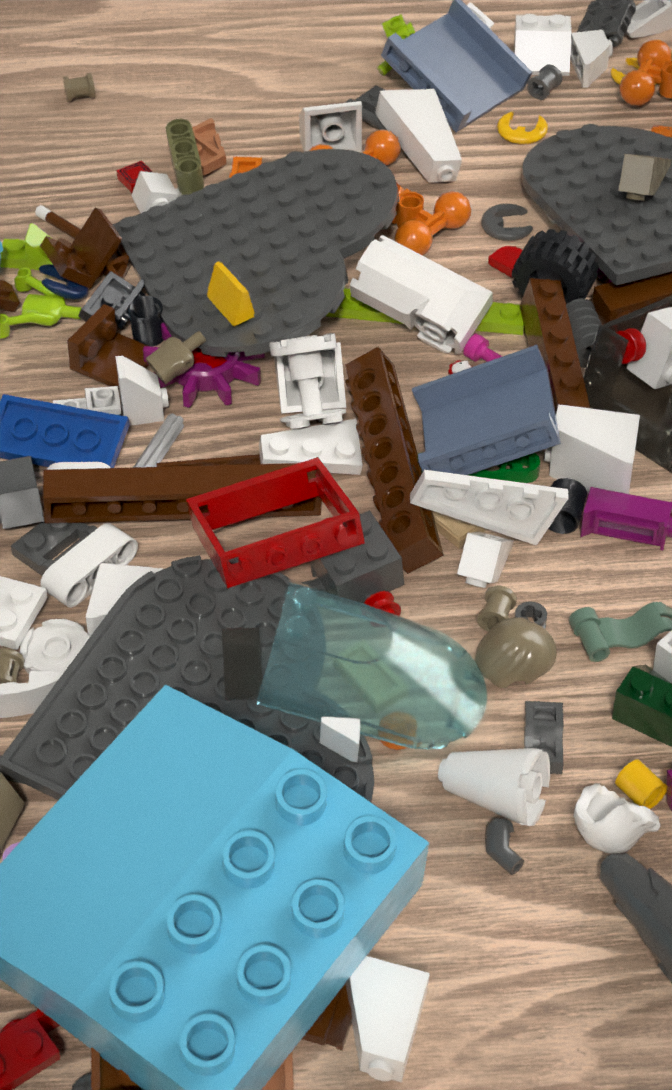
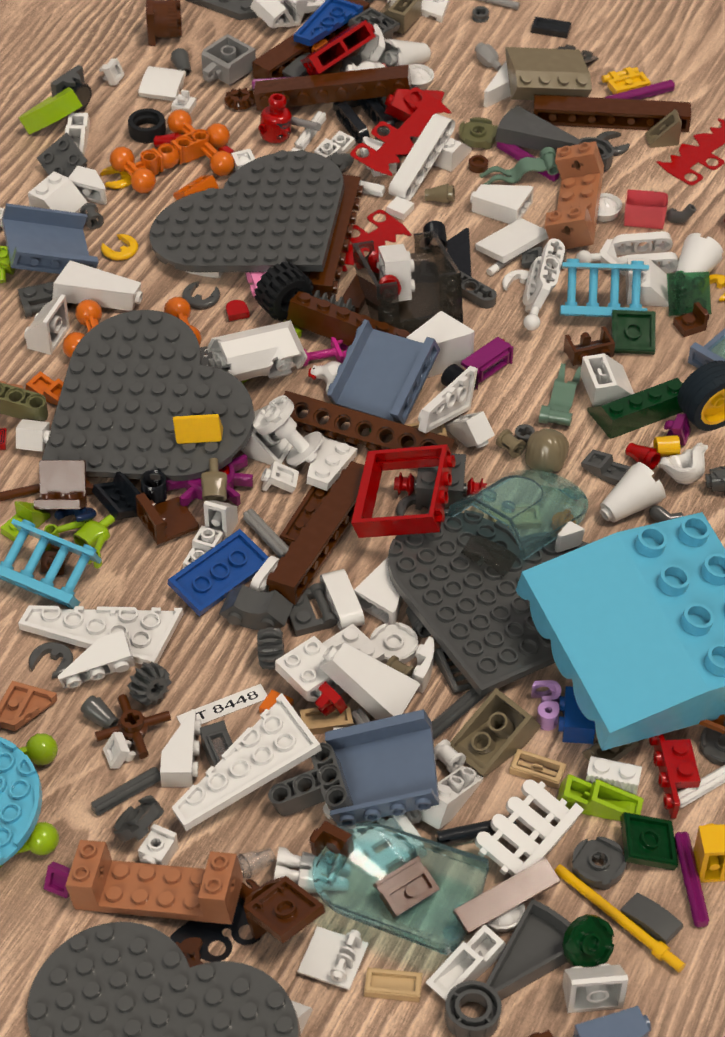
camera: 60 degrees left, 0 degrees up
(252, 418) = (280, 476): none -> white bracket
(599, 764) = (643, 454): none -> red cone
(642, 175) = (247, 211): dark tan slope -> none

